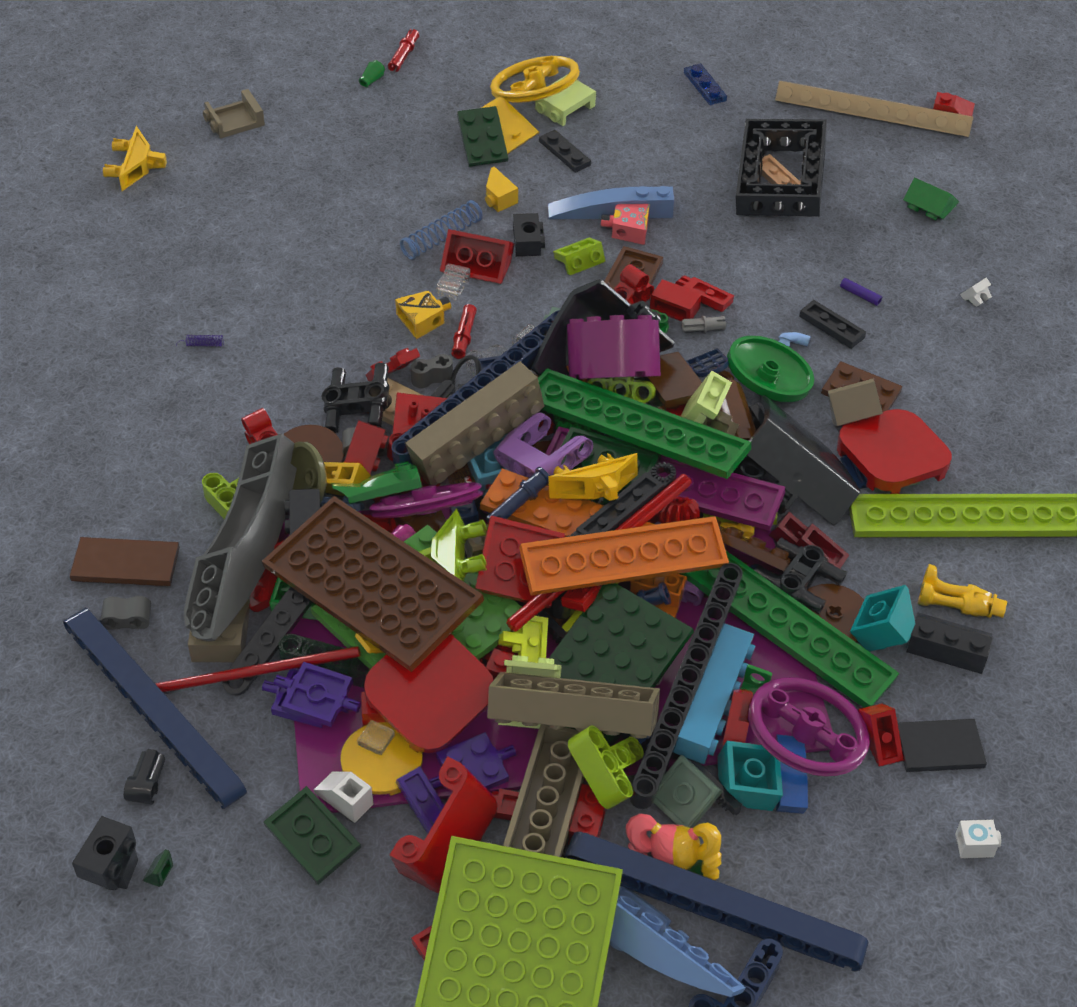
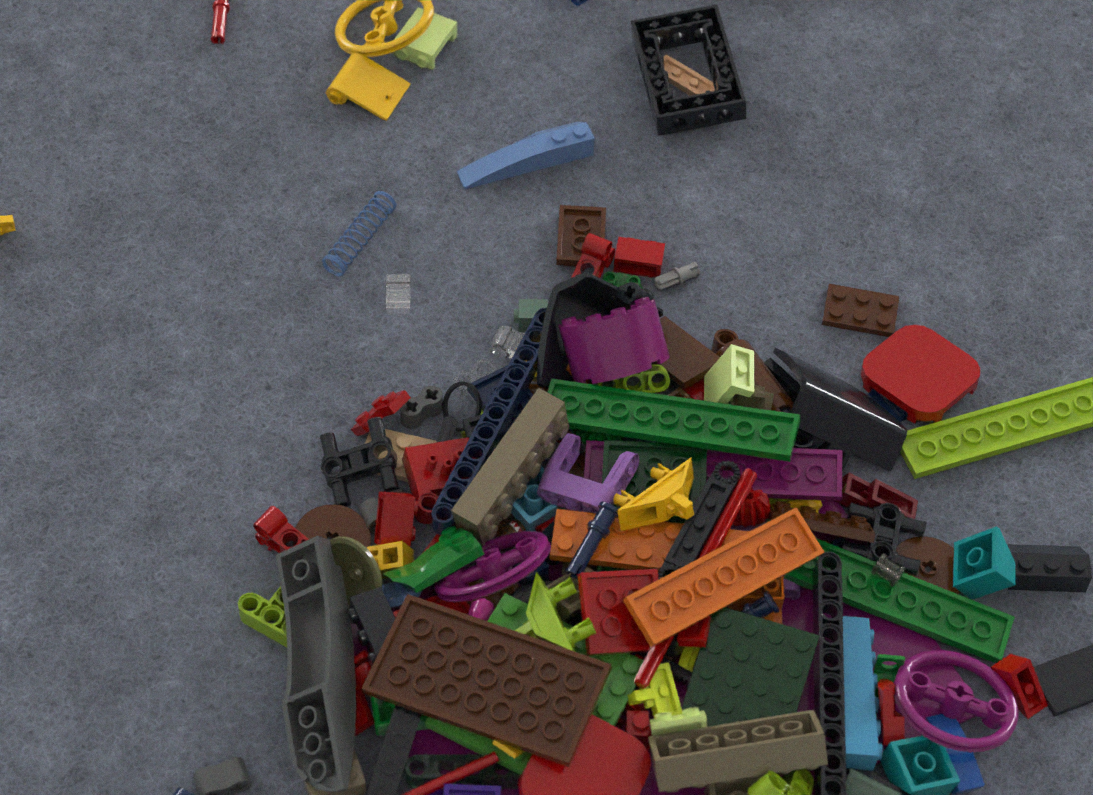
camera: 20 degrees left, 5 degrees up
(125, 561) = (193, 721): reddish brown tile -> none
(212, 341) = (143, 443): dark purple piece -> none
(235, 117) = (67, 145): dark tan panel -> none
(372, 73) = (198, 52): green cone -> none
(421, 312) = (380, 339): yellow torso -> none
(460, 347) = (434, 357): red pin -> none
(482, 136) = (356, 107): dark green plate -> none
(484, 255) = (411, 253): red slope -> none
(500, 191) = (402, 170): yellow slope -> none
(527, 234) = (453, 216): black brick -> none
(565, 151) = (448, 101): black plate -> none
(580, 255) = (518, 226): lime bracket -> none
(628, 222) = (553, 174): coral torso -> none
(703, 371) = (713, 323): dark blue window -> none
(711, 295) = (675, 241): red hinge -> none
(770, 368) = (766, 312): green dish -> none
(788, 597) = (888, 570): none -> clear smoke bush
(794, 337) = (772, 267): light blue arm -> none
(832, 324) = (805, 242): black plate -> none
(854, 402) = (868, 334): dark tan slope -> none
(861, 291) = (818, 196): dark purple piece -> none
(930, 199) = (847, 71): green slope -> none
(969, 599) = (1051, 516): yellow piece -> none
(977, 291) = (932, 167): white tile -> none

